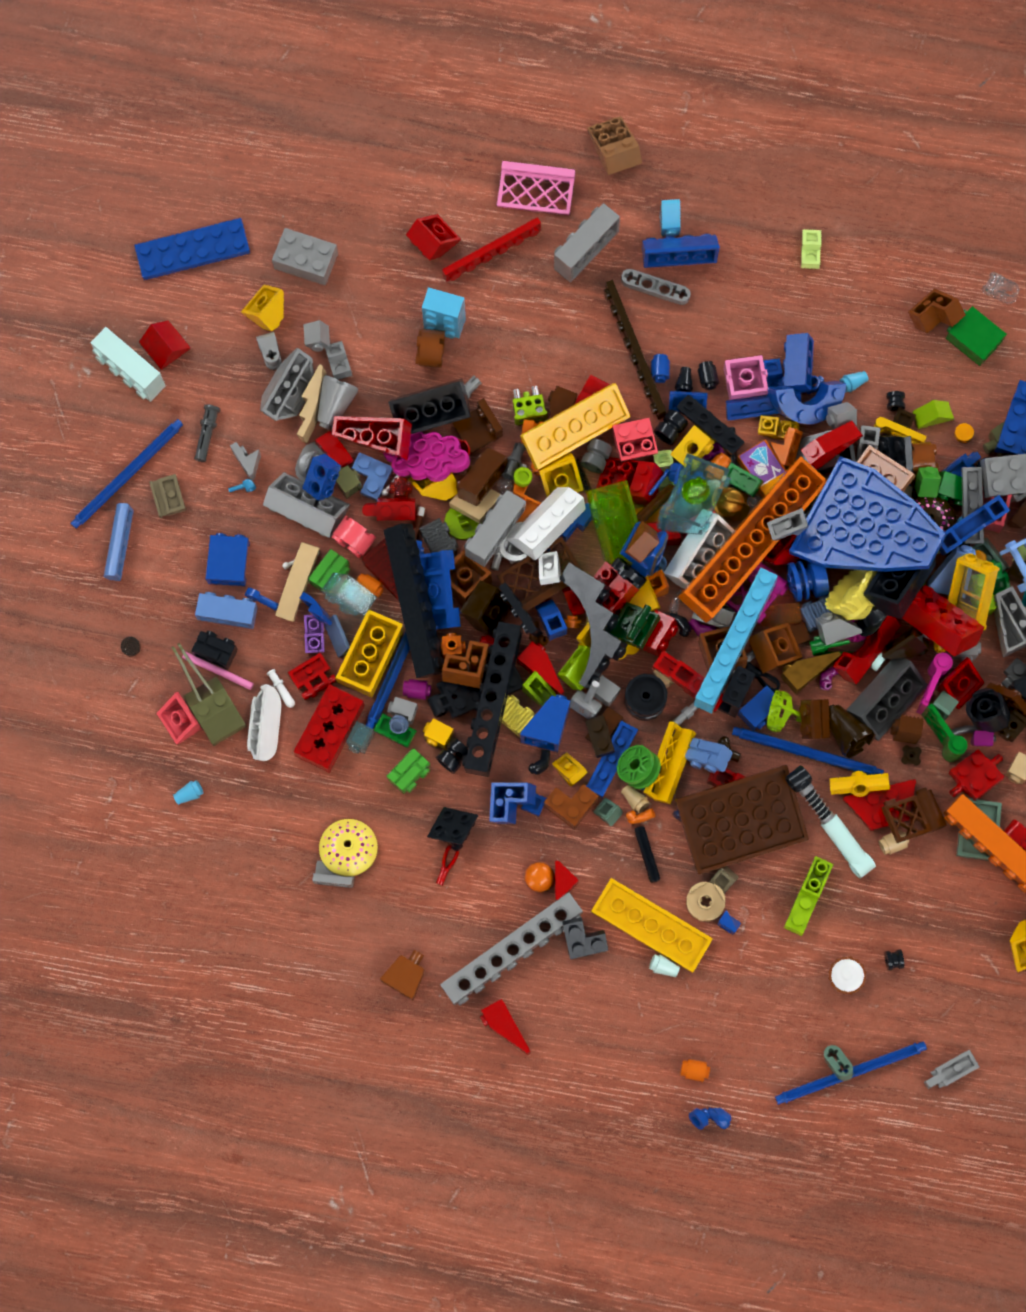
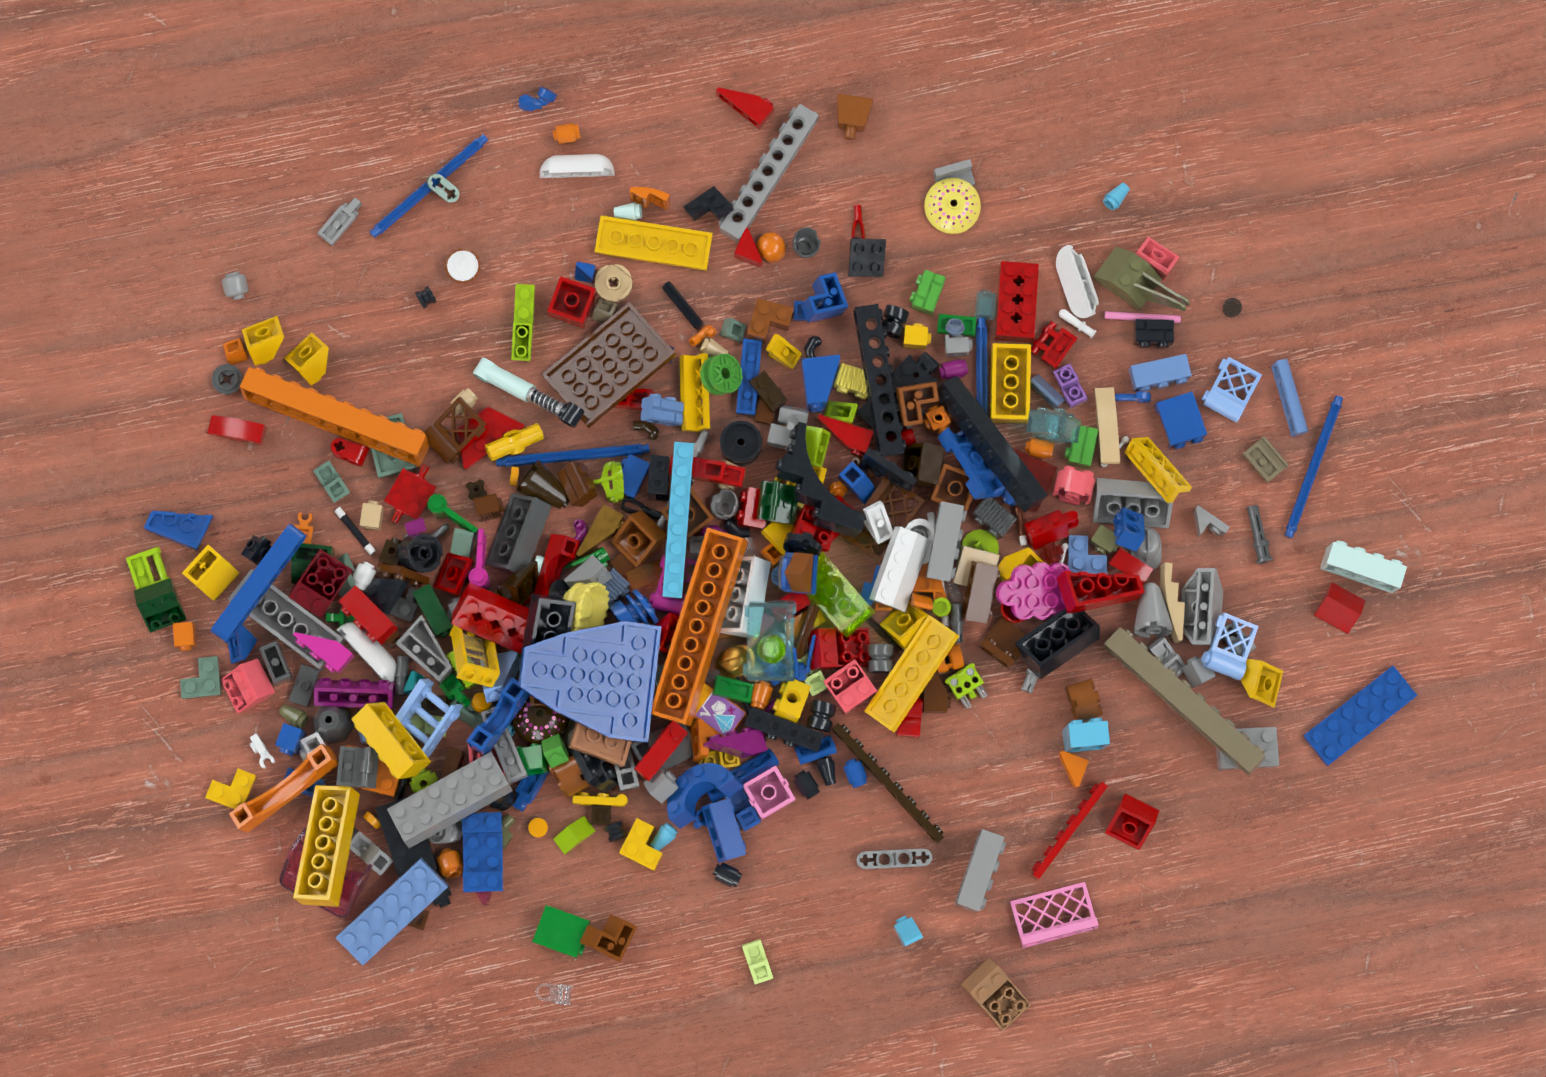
camera: 150 degrees right, 5 degrees up
(181, 562) = (1221, 400): none -> light blue piece
(247, 484) = (1195, 501): dark azure hand -> none
(274, 520) = (1154, 469): none -> yellow fence
(289, 330) = (1228, 662): none -> light blue piece
(315, 609) = (1075, 403): blue slope -> none
(342, 309) = (1184, 701): none -> dark tan brick
(465, 291) = (1074, 767): none -> orange slope
(505, 864) = (806, 242): none -> dark grey hair
(538, 487) = (921, 601): none -> orange slope
(644, 970) = (646, 195): none -> orange slope
(680, 251) = (886, 903): blue slope -> none
(683, 647) = (724, 504): none -> light grey hair
(696, 1034) = (576, 166): none -> white brick
(754, 895) = (572, 302): none -> red brick
(755, 429) = (741, 745): none -> magenta slope
(787, 525) = (671, 644): light grey slope -> none
(809, 325) = (727, 875): none -> black brick
(870, 754) = (514, 476): none -> light orange tile
(881, 379) = (636, 848): none -> yellow brick
(993, 656) = (433, 611): none -> dark green slope

